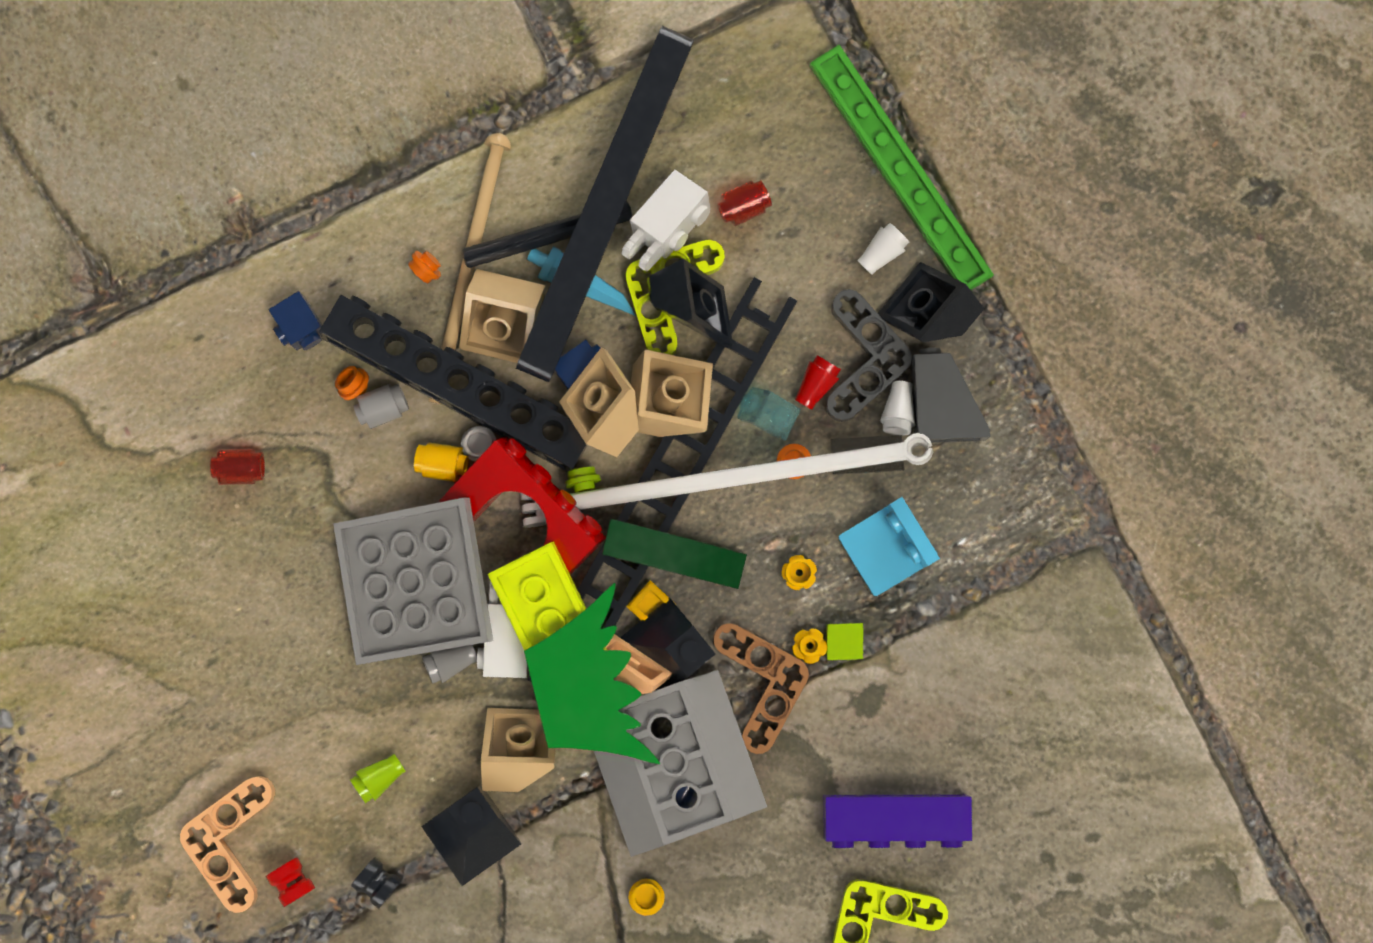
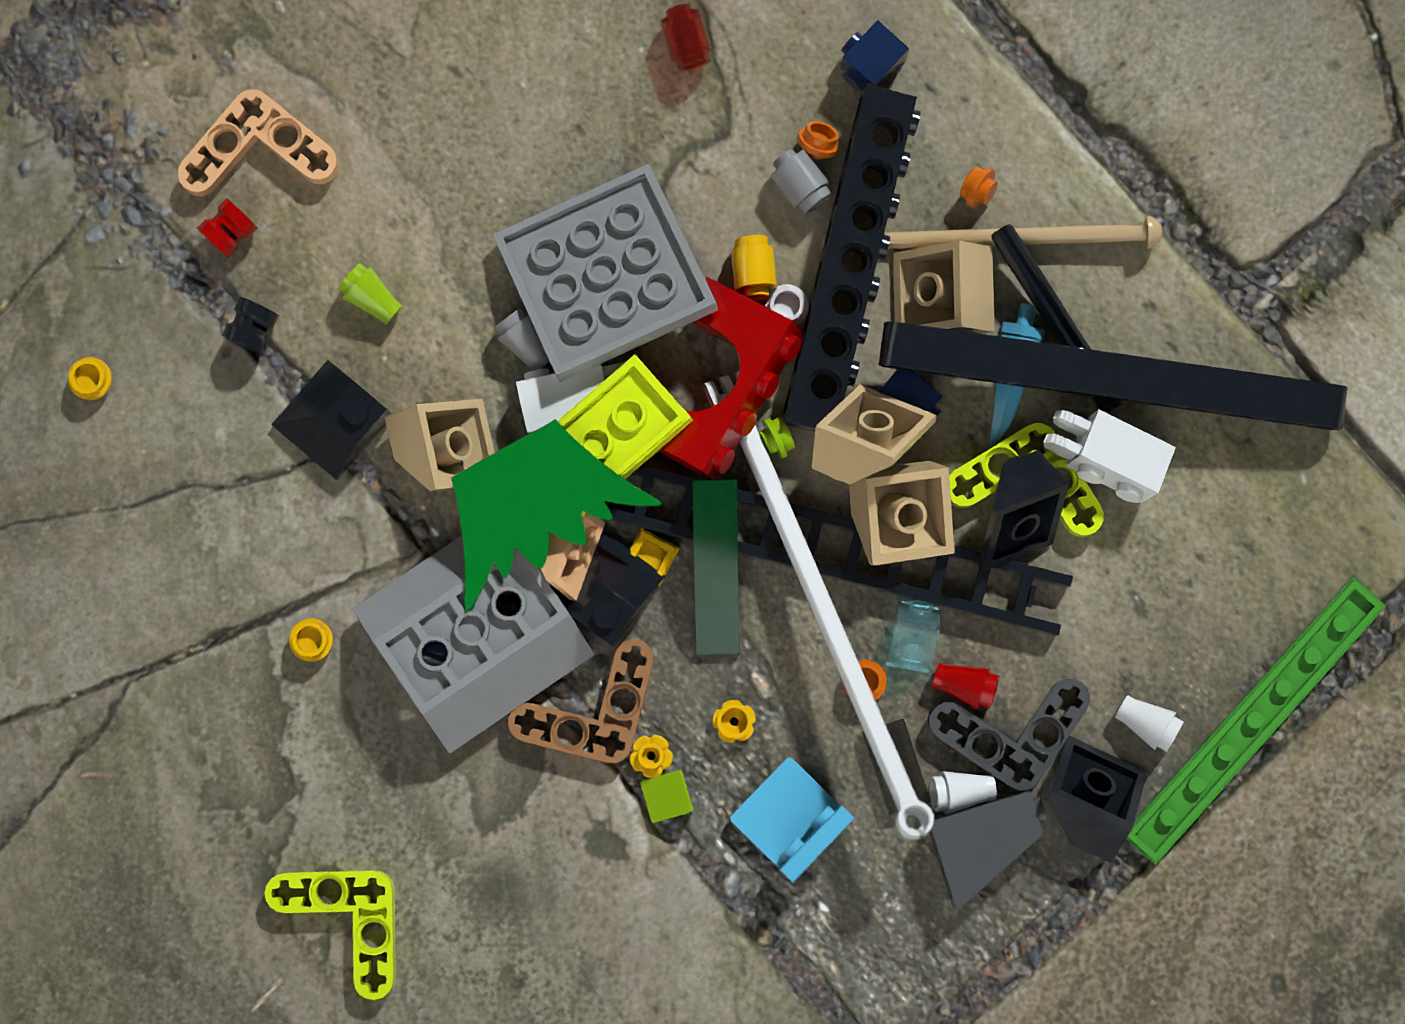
camera: 80 degrees right, 0 degrees up
(744, 202) = (1159, 541): clear red brick -> none
(897, 818) = (474, 911): dark purple brick -> none

